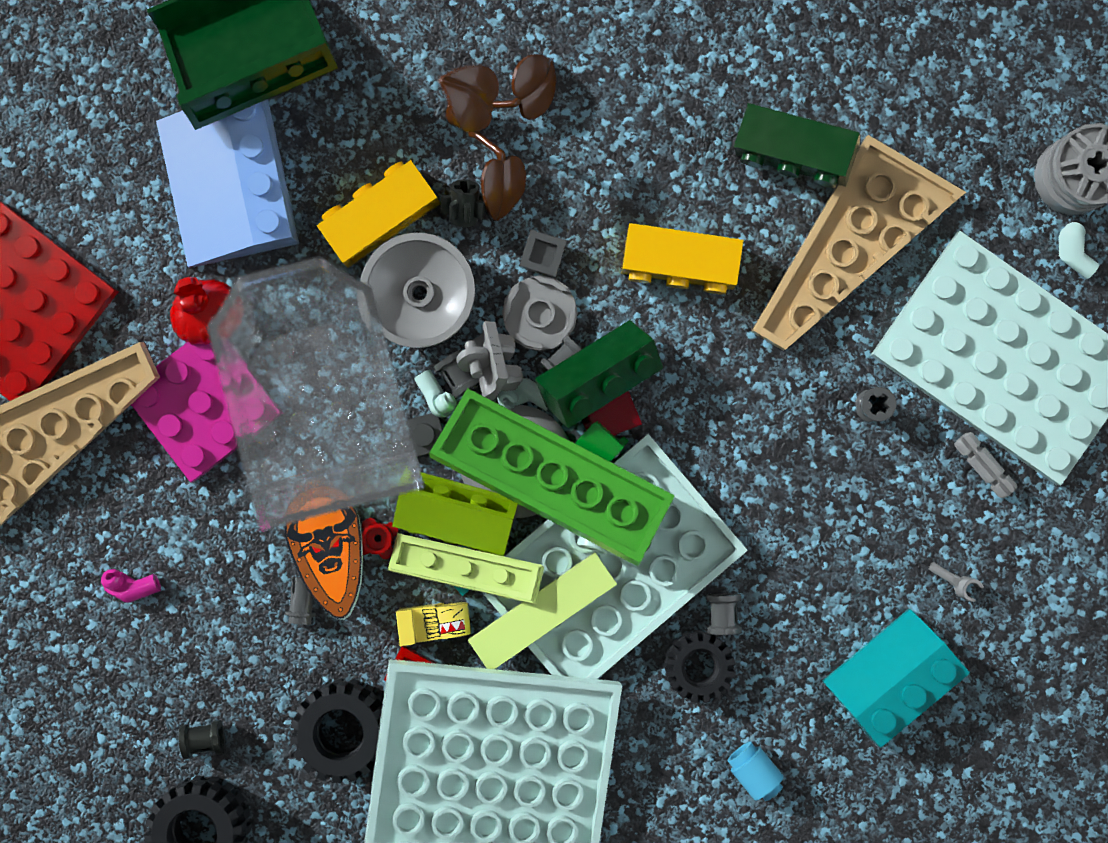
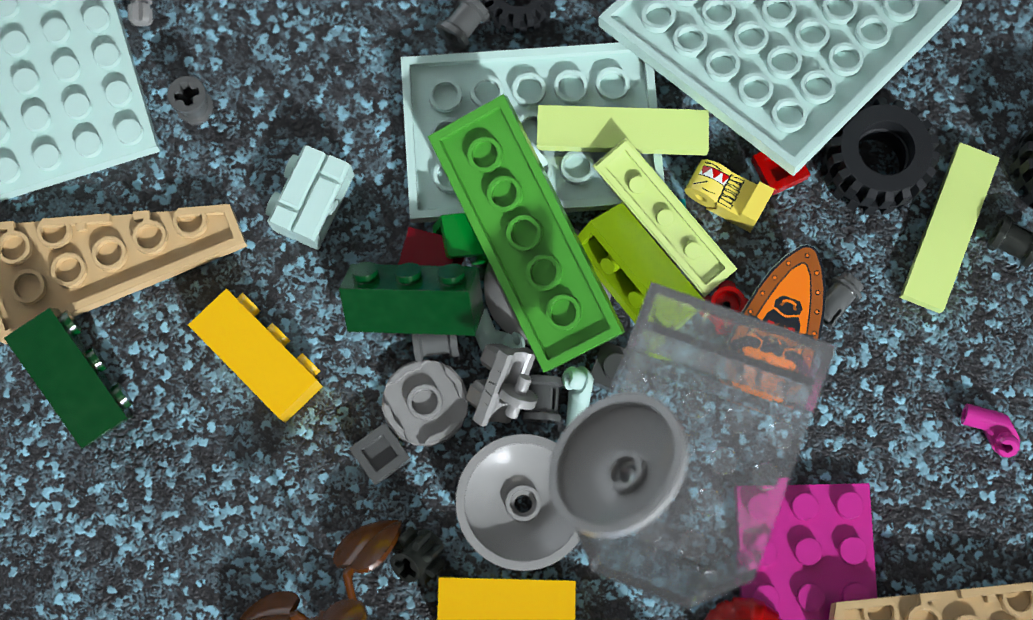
camera: 145 degrees left, 10 degrees down
(257, 717) = (949, 228): none -> yellowish green tile
(369, 329) = (602, 453): none -> light grey dish
(733, 397) = (310, 196): none -> light aqua brick

